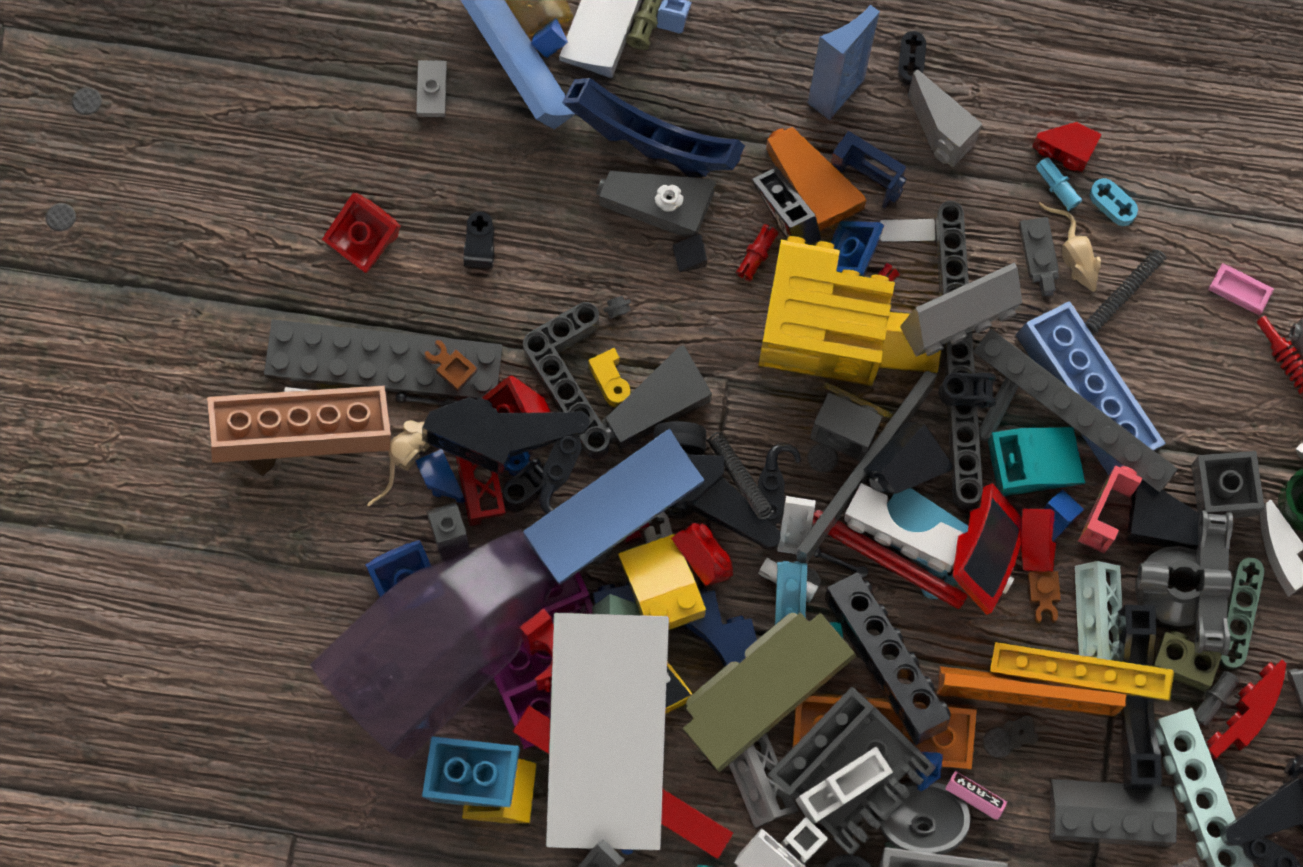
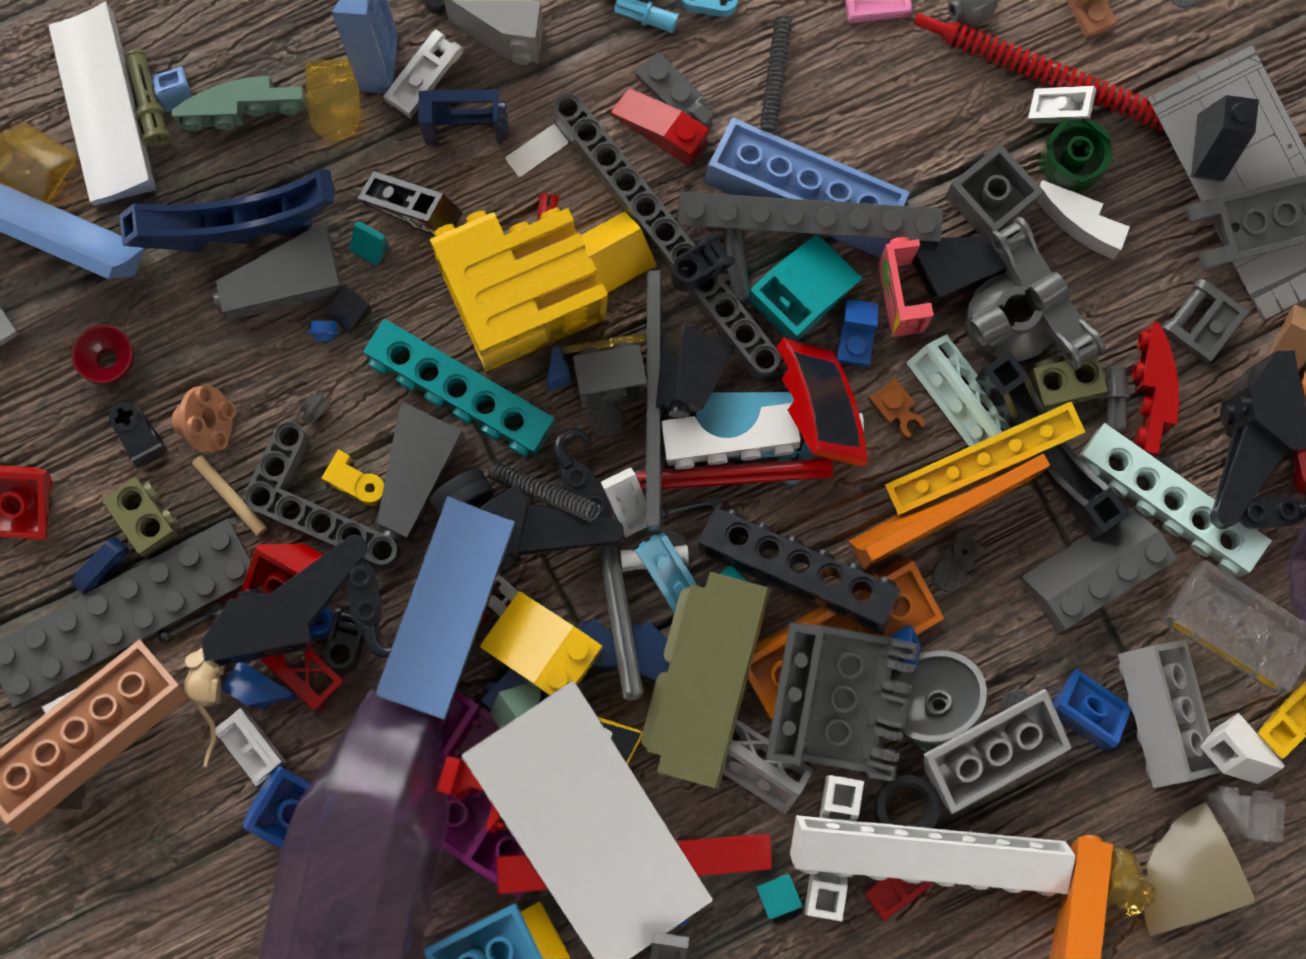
camera: 35 degrees left, 5 degrees up
(390, 317) = (100, 565): none -> dark blue beam
(407, 513) = (250, 746): none -> white hinge
(437, 303) = (135, 522): none -> olive brick
(448, 530) = (299, 739): dark grey slope -> none
(453, 368) = (196, 575): dark orange plate -> none
(492, 158) = (92, 344): none -> dark red piece
(514, 329) = (229, 495): none -> tan bar
(535, 263) = (204, 418): none -> nougat plate
(549, 38) = (68, 191): blue slope -> none
(662, 257) = (323, 330): none -> blue plate
(664, 203) = (294, 277): white plate -> none
(704, 49) = (225, 103): none -> sand green slope
(704, 554) = (561, 590): red slope -> none
(706, 296) = (391, 340): none -> teal brick
(731, 606) = (620, 623): none -> dark grey axle
(737, 216) = (368, 243): none -> teal slope
(757, 252) = (411, 266): red pin -> none
(783, 95) = (332, 98): none -> clear yellow window
(810, 399) = (558, 370): none -> blue slope
(814, 178) = (415, 158): orange slope -> none
(844, 785) = (843, 720): white slope -> none
(856, 244) = (499, 193): blue slope -> none
(862, 119) = (422, 73): none -> white plate
(963, 311) = (645, 192): light grey slope -> none
(976, 795) = (966, 640): bright pink tile -> none
(1003, 251) = (662, 125): none -> red slope
(1036, 540) = (858, 362): red slope -> none
(1078, 254) = (711, 67): tan animal -> none
(1243, 614) = (1090, 301): sand green beam -> none

